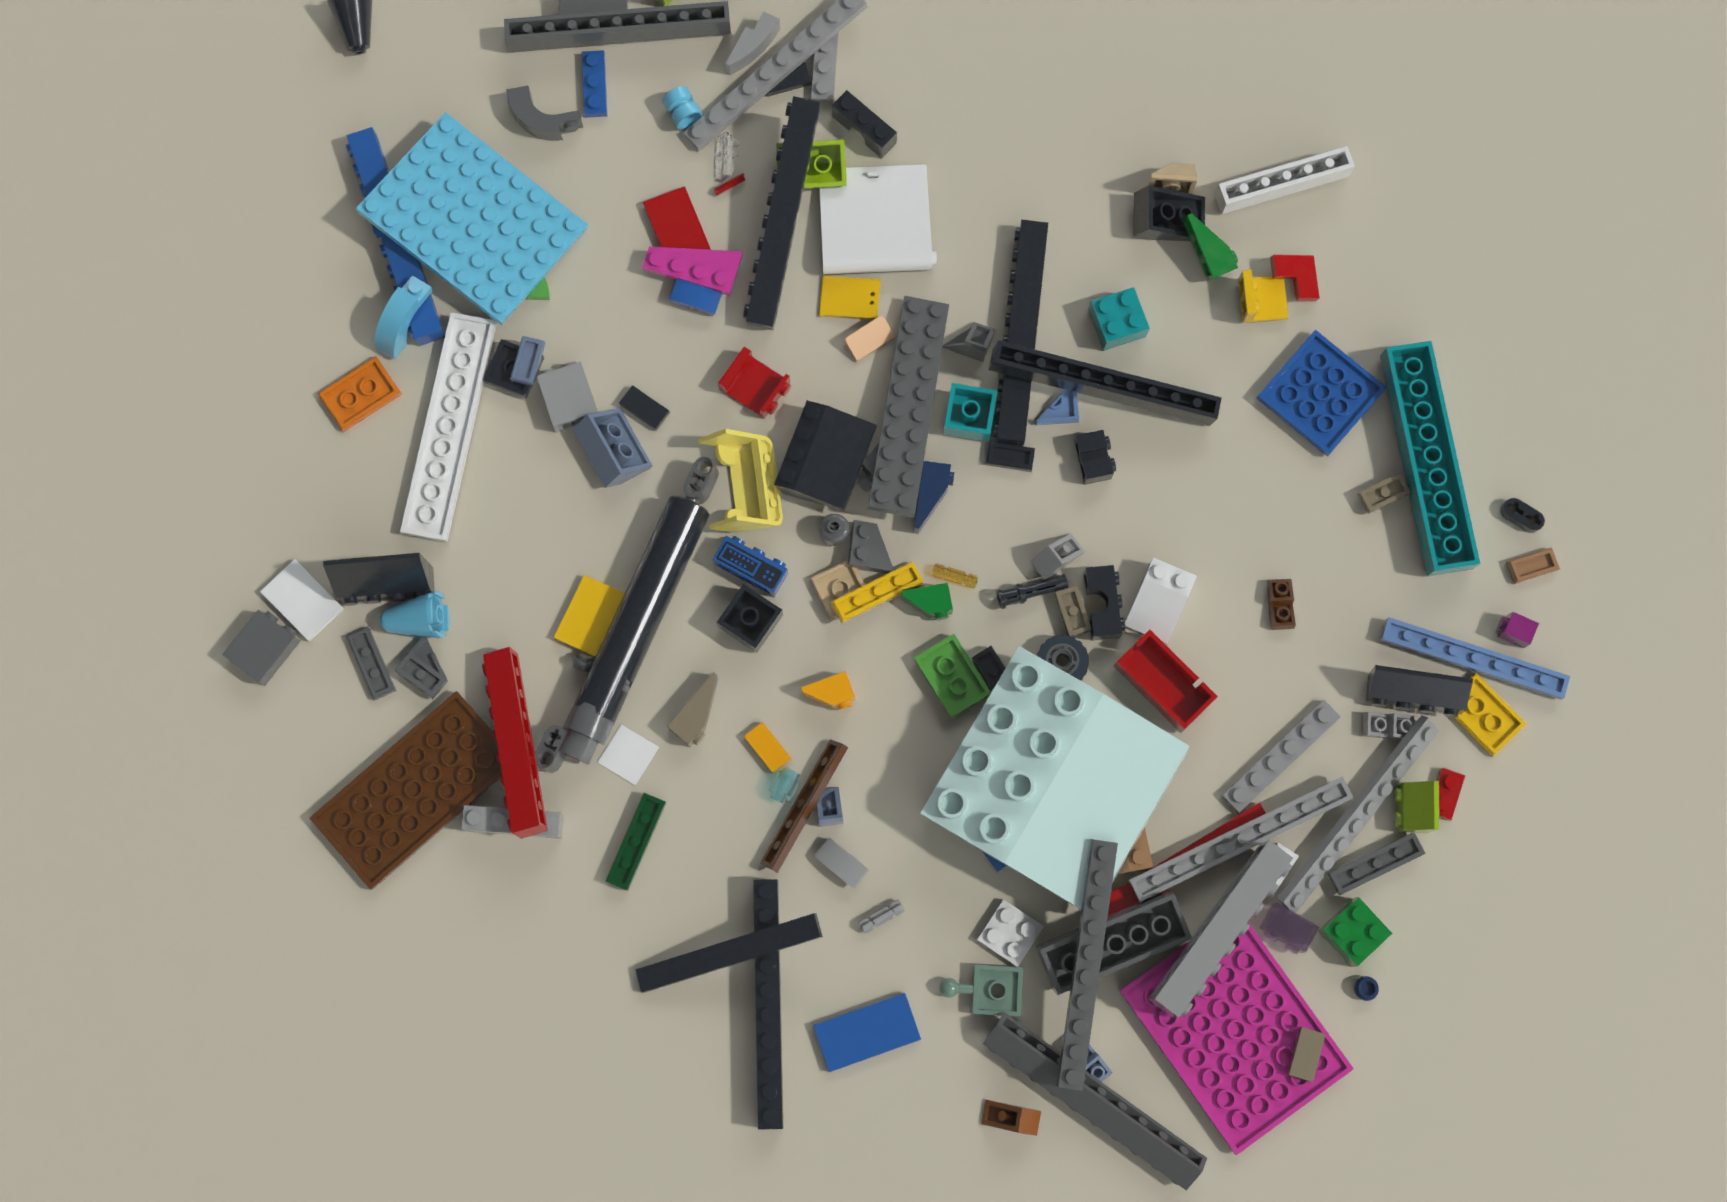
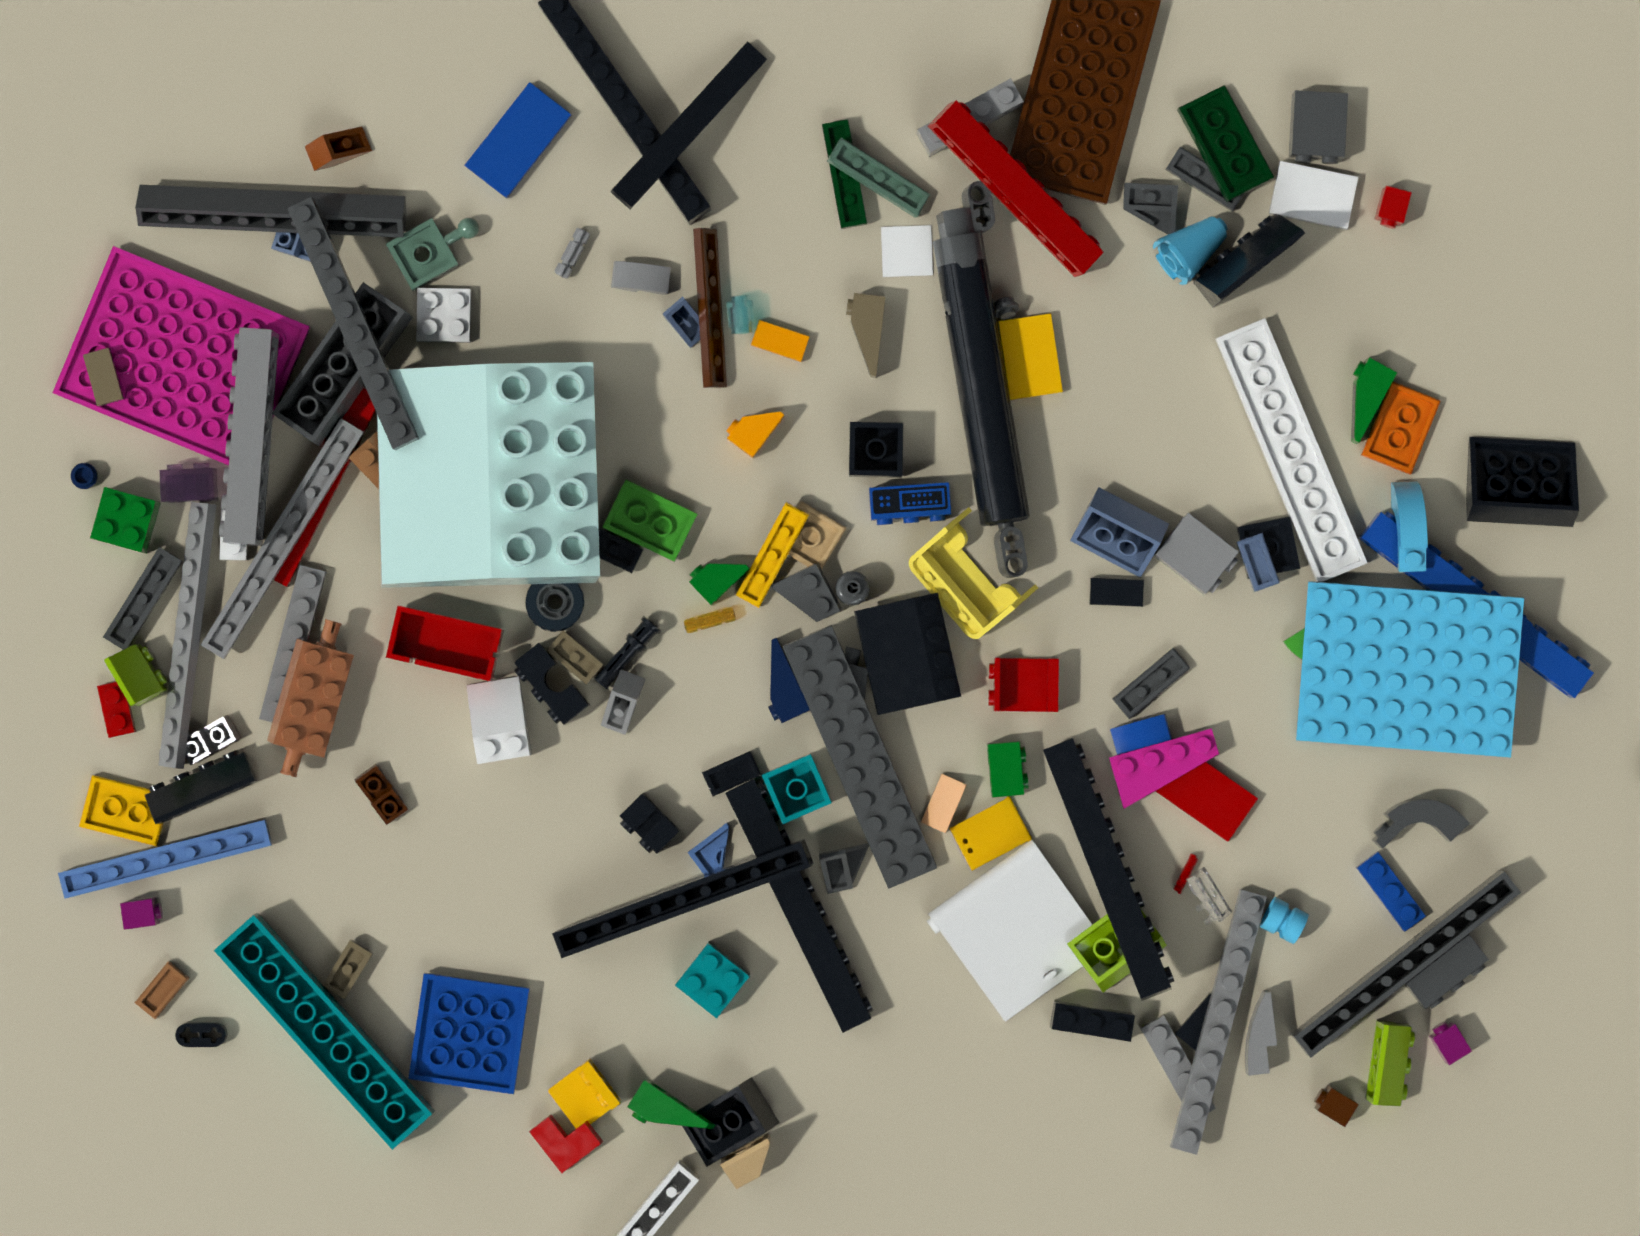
camera: 145 degrees right, 10 degrees up
(251, 552) = (1392, 207): none -> red brick
(301, 299) = (1522, 482): none -> black slope
(338, 679) = (1225, 143): none -> dark green tile
(363, 431) = (1368, 392): none -> green slope
(612, 821) = (878, 177): none -> sand green tile
(663, 329) = (1151, 683): none -> dark grey tile
(808, 333) = (1006, 769): none -> green brick
(1293, 705) = (310, 698): none -> nougat brick

